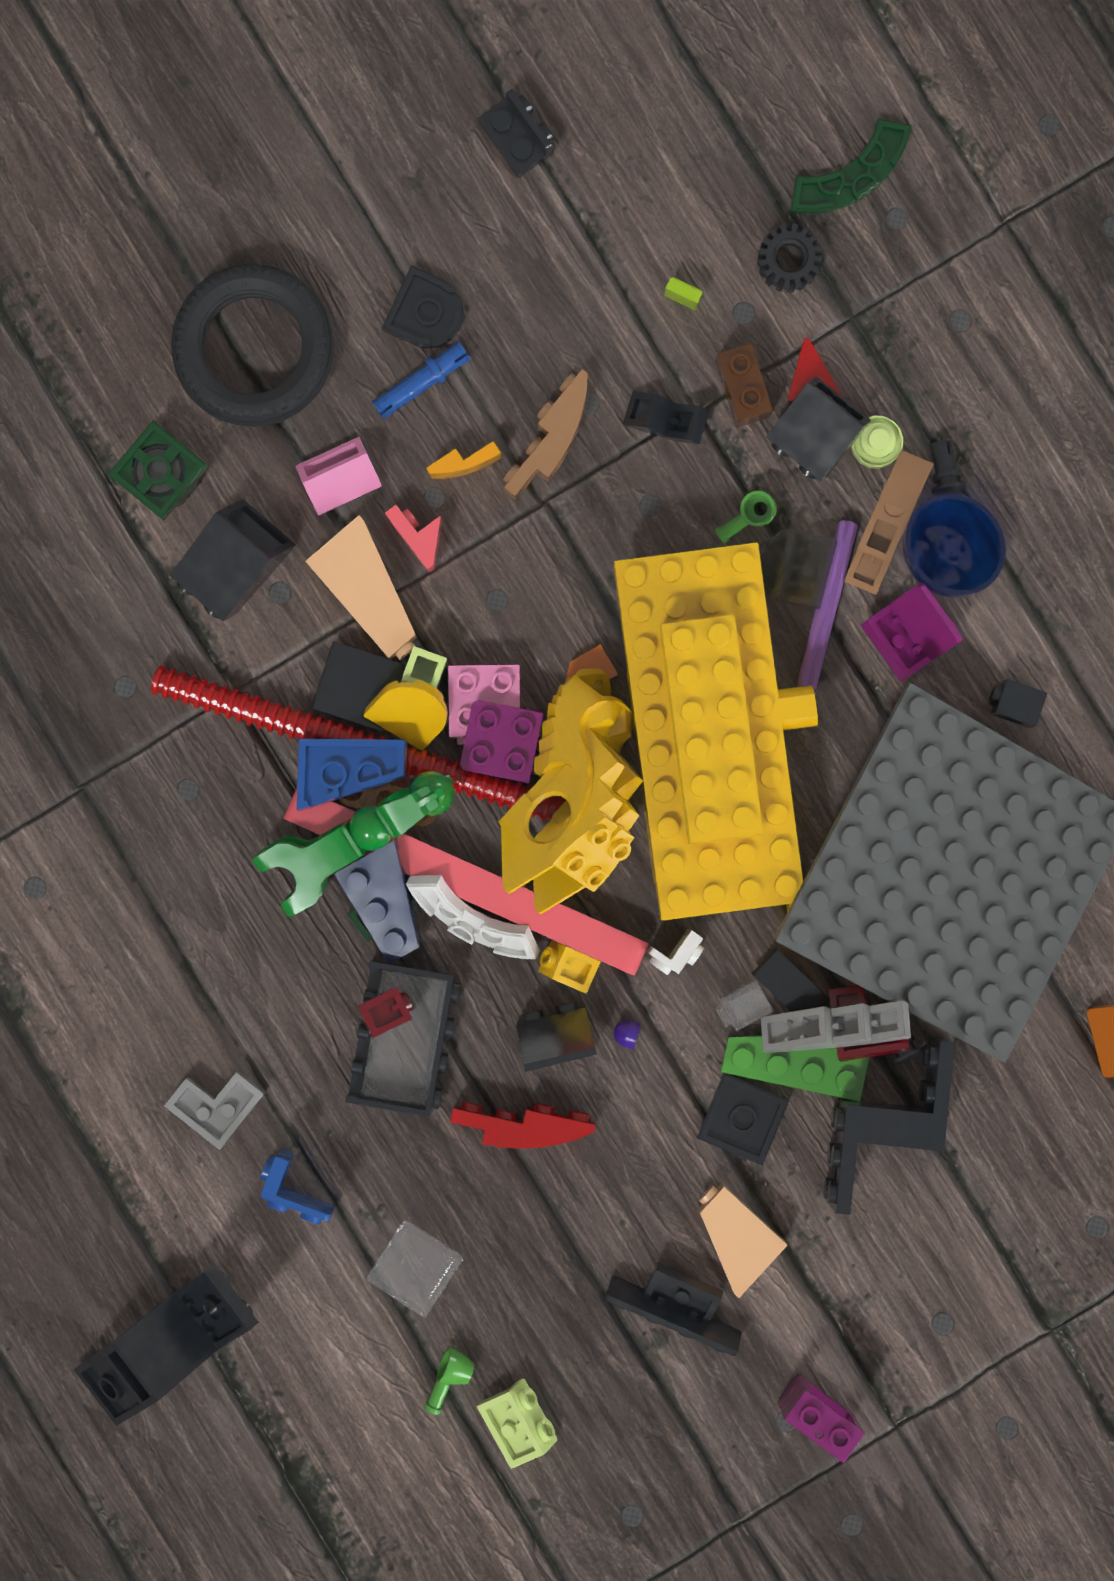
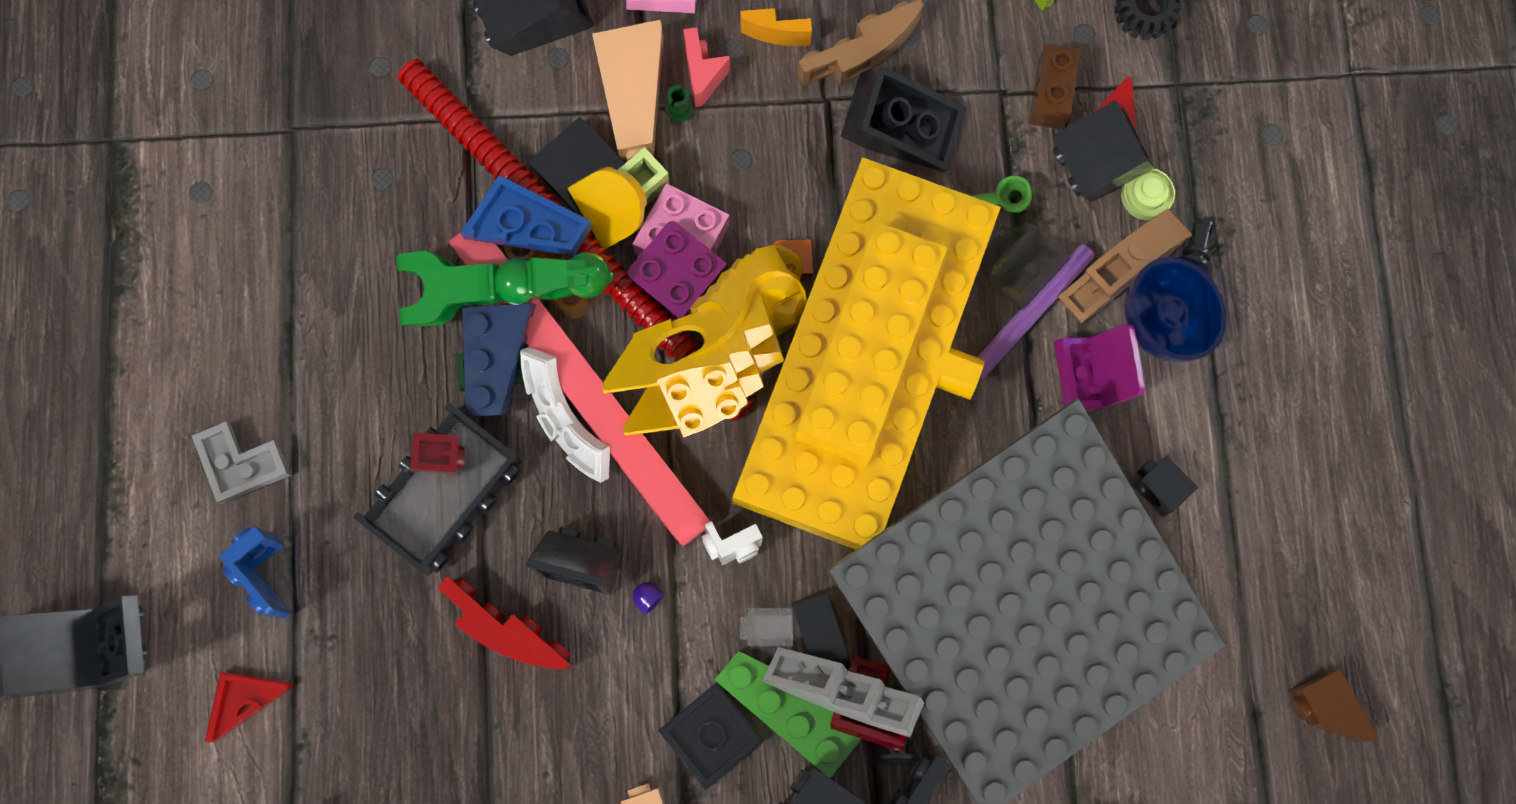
camera: 25 degrees right, 10 degrees down
(334, 1297) = (239, 699): none -> red tile
(414, 1268) = (329, 711): clear tile -> none
(421, 590) = (678, 105): none -> dark green pin
(568, 966) = (627, 506): yellow bracket -> none
(624, 489) = (902, 119): none -> black slope
(665, 418) = (968, 81): black slope -> none

